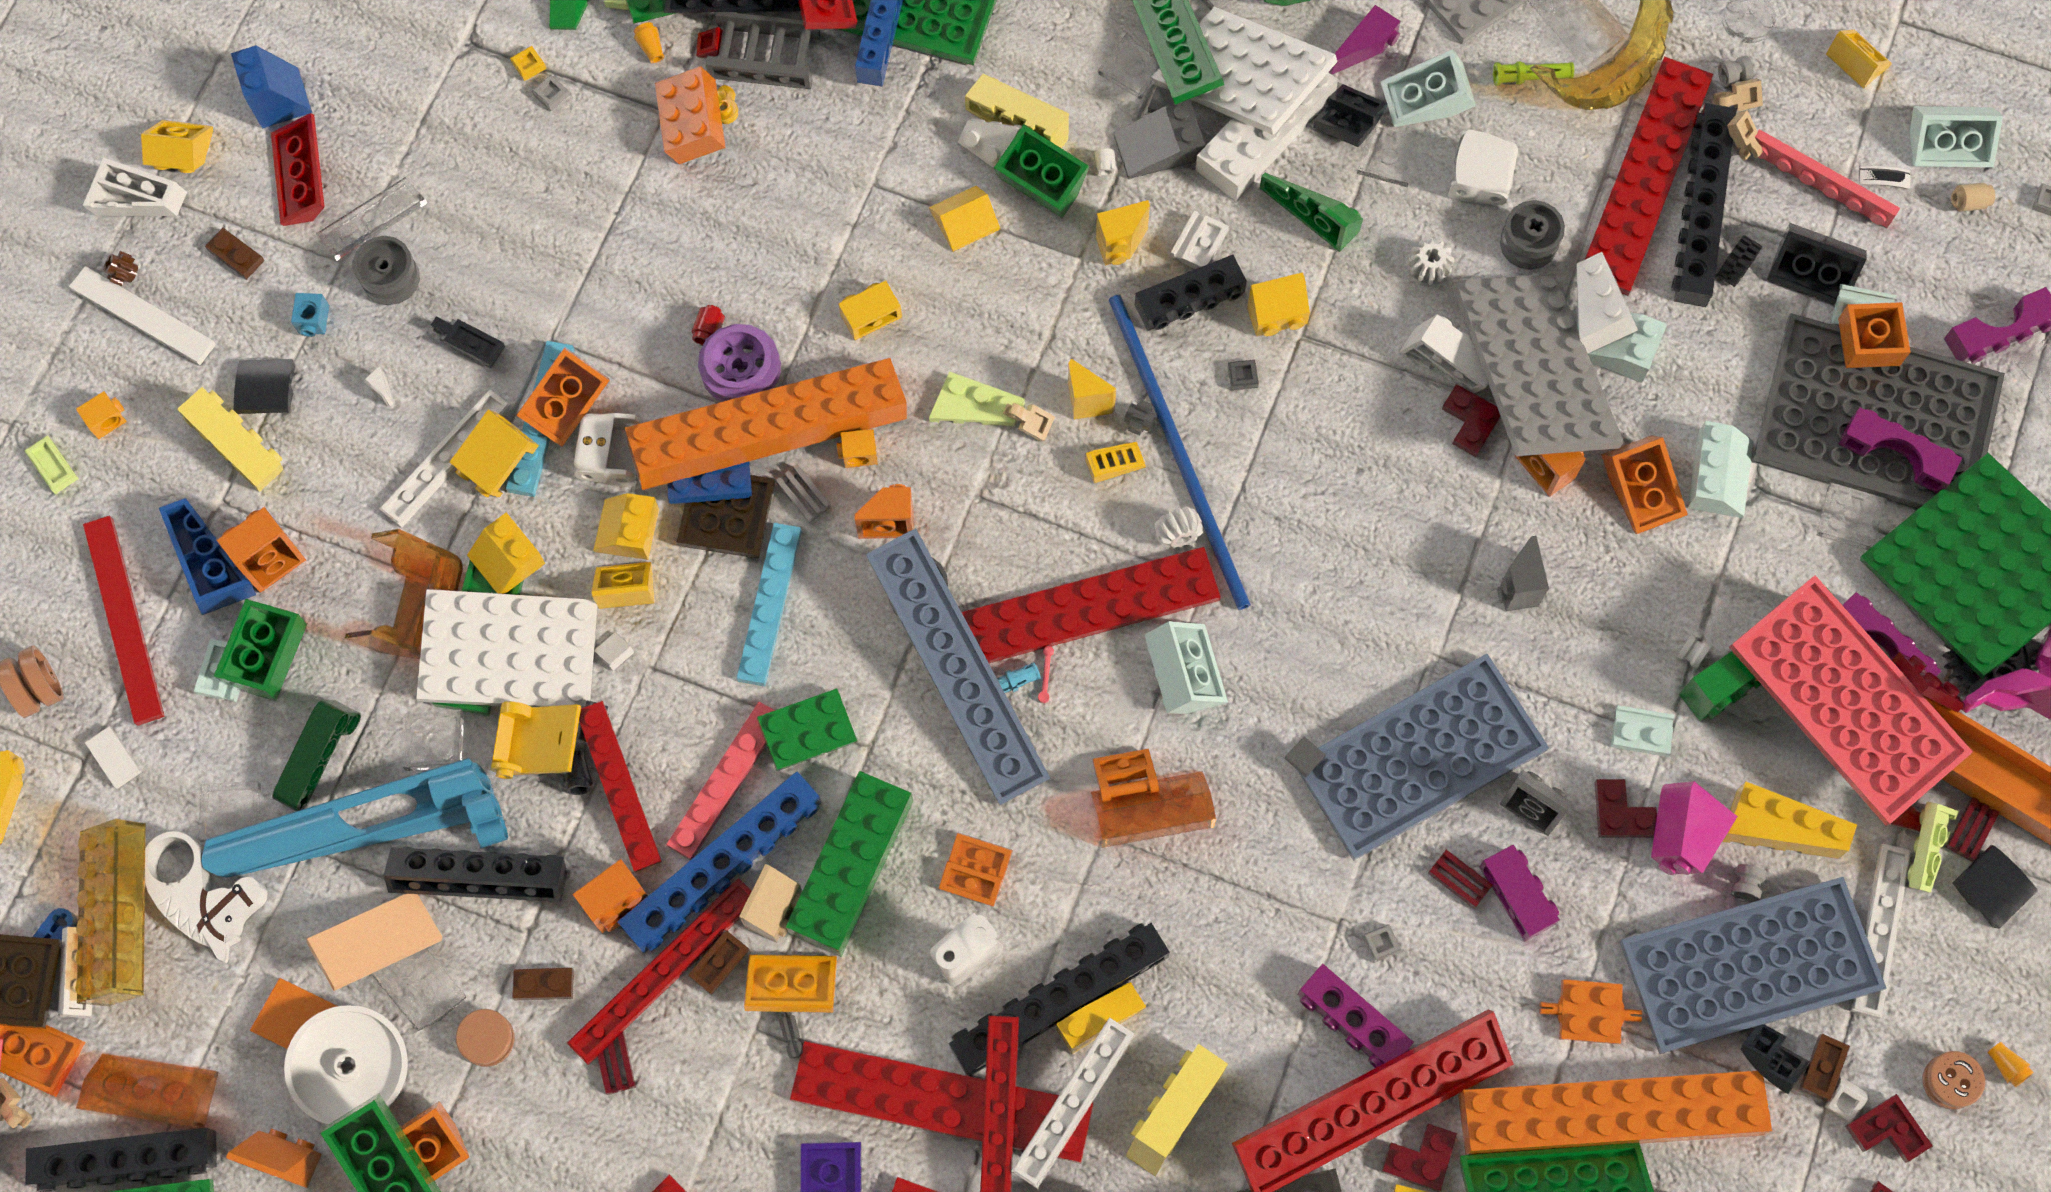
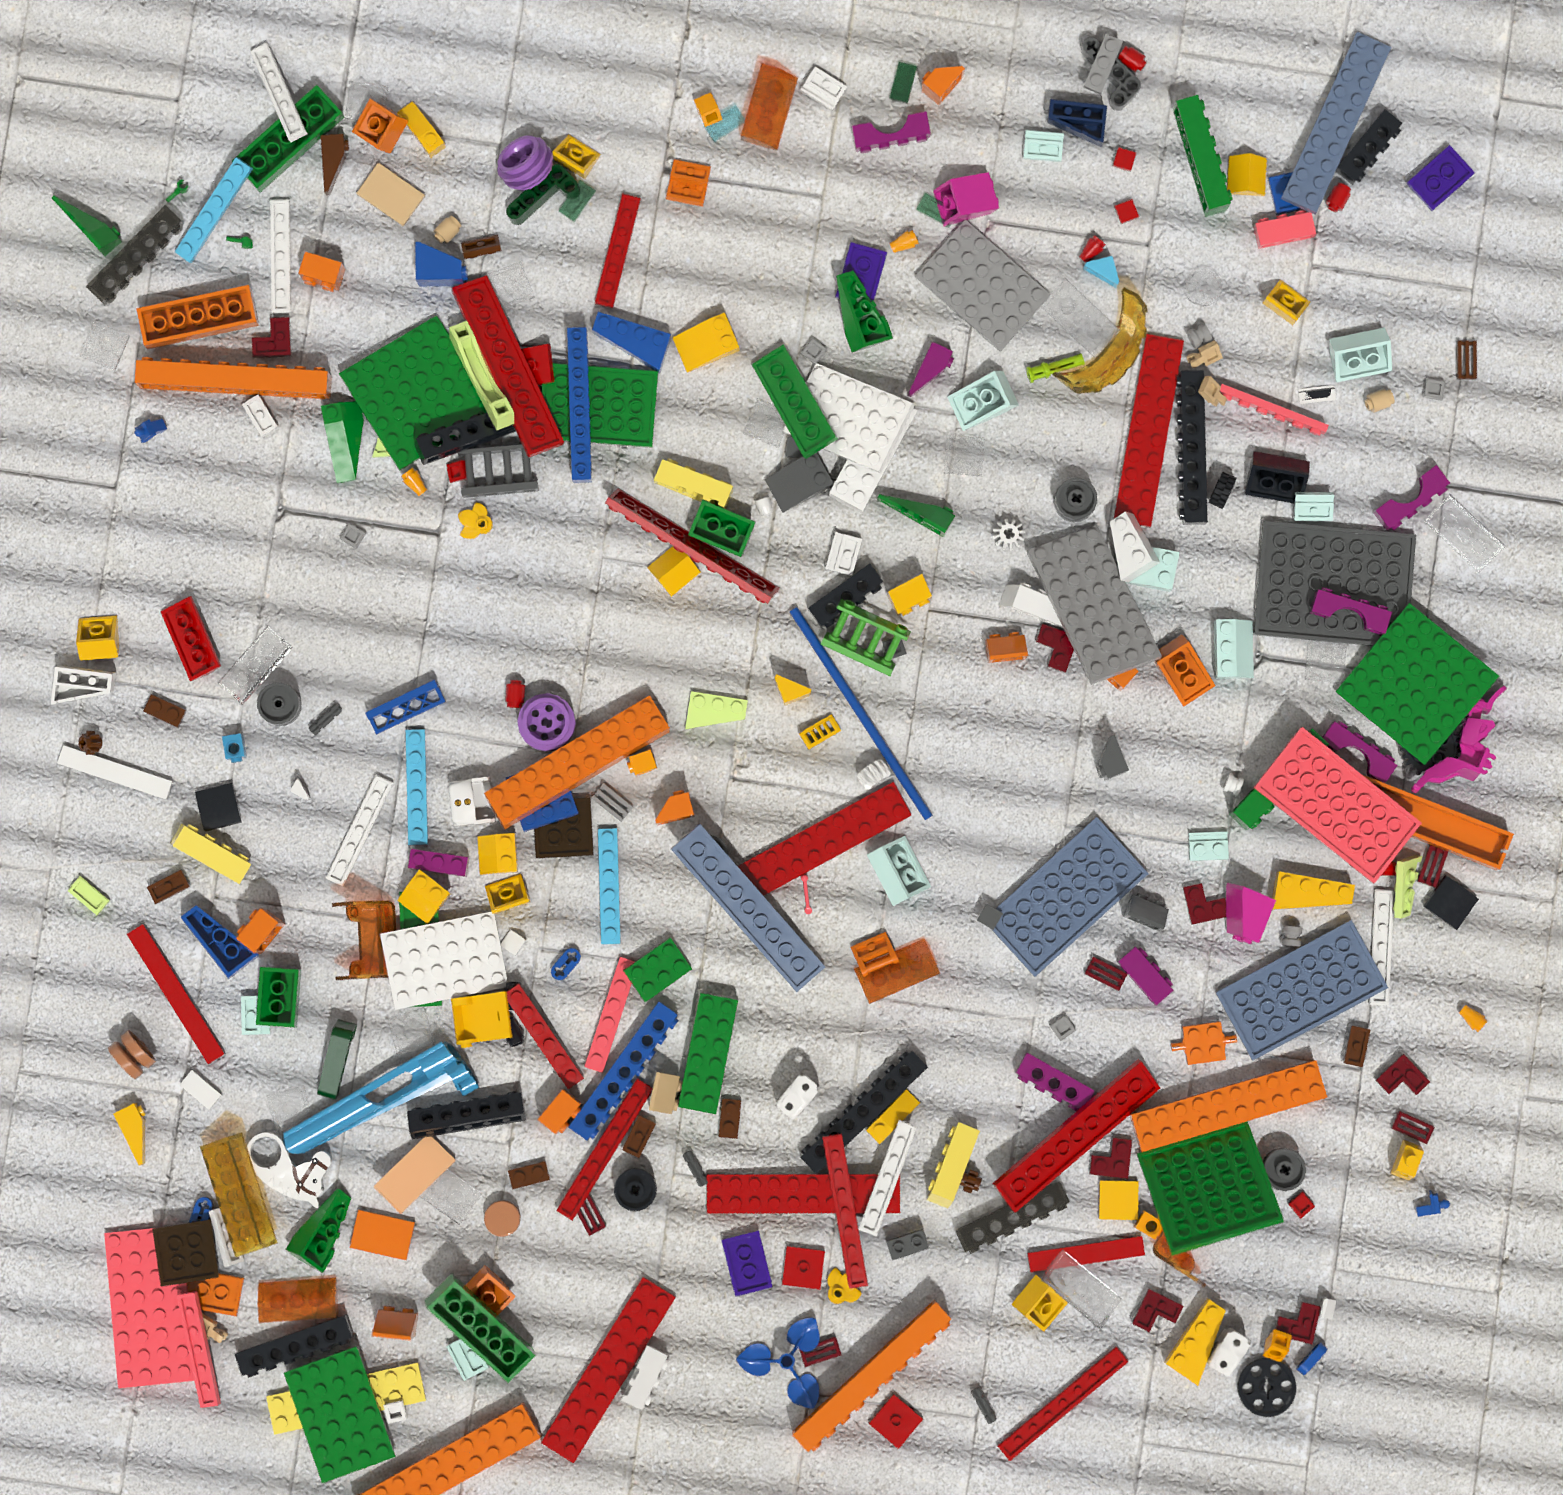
camera: 15 degrees left, 15 degrees up
(102, 414) = (113, 853): light orange brick -> none
(161, 474) = (168, 887): none -> reddish brown plate
(208, 1003) = (317, 1236): none -> green wedge
(270, 86) = (154, 580): blue slope -> none
(337, 1038) = (438, 1253): white dish -> none
(443, 306) = (325, 719): none -> dark grey axle
(469, 340) = (351, 742): black hinge -> none
(491, 453) = (394, 824): yellow panel -> none
(528, 63) = (329, 516): yellow tile -> none
(542, 519) = (438, 862): none -> magenta brick
(552, 302) = (402, 700): none -> blue fence
(563, 397) = (431, 771): orange slope -> none
(683, 701) = (569, 967): none -> blue beam
(689, 115) = (460, 537): orange brick -> none
(708, 1042) = (629, 1199): none -> black wheel
(790, 983) = (689, 1140): light orange tile -> none
(859, 967) = (729, 1118): none -> reddish brown plate
(870, 310) = (625, 657): yellow brick -> none
(975, 869) = (790, 1037): orange slope -> none
(987, 139) = (678, 509): white wing -> none
(999, 190) = (697, 550): none -> red plate
(1013, 680) = (788, 902): medium azure pin -> none
(1033, 420) = (757, 717): tan plate -> none
(1121, 231) = (788, 563): yellow slope -> none
(1140, 417) = (830, 698): dark grey gear -> none
(1183, 358) = (852, 650): none -> bright green fence
(1198, 1139) = (970, 1181): none -> reddish brown gear
(1350, 115) = (930, 431): black slope -> none
(1400, 404) = (1006, 648): none -> orange slope
(1483, 169) = (1033, 455): white piece -> none
(1771, 1059) = (1322, 1049): black slope -> none
(1847, 1100) = (1374, 1062): white slope -> none
(1874, 335) = (1321, 531): orange brick -> none
(1928, 683) = (1385, 783): dark red plate -> none
(1953, 1080) = (1438, 1036): nougat head -> none

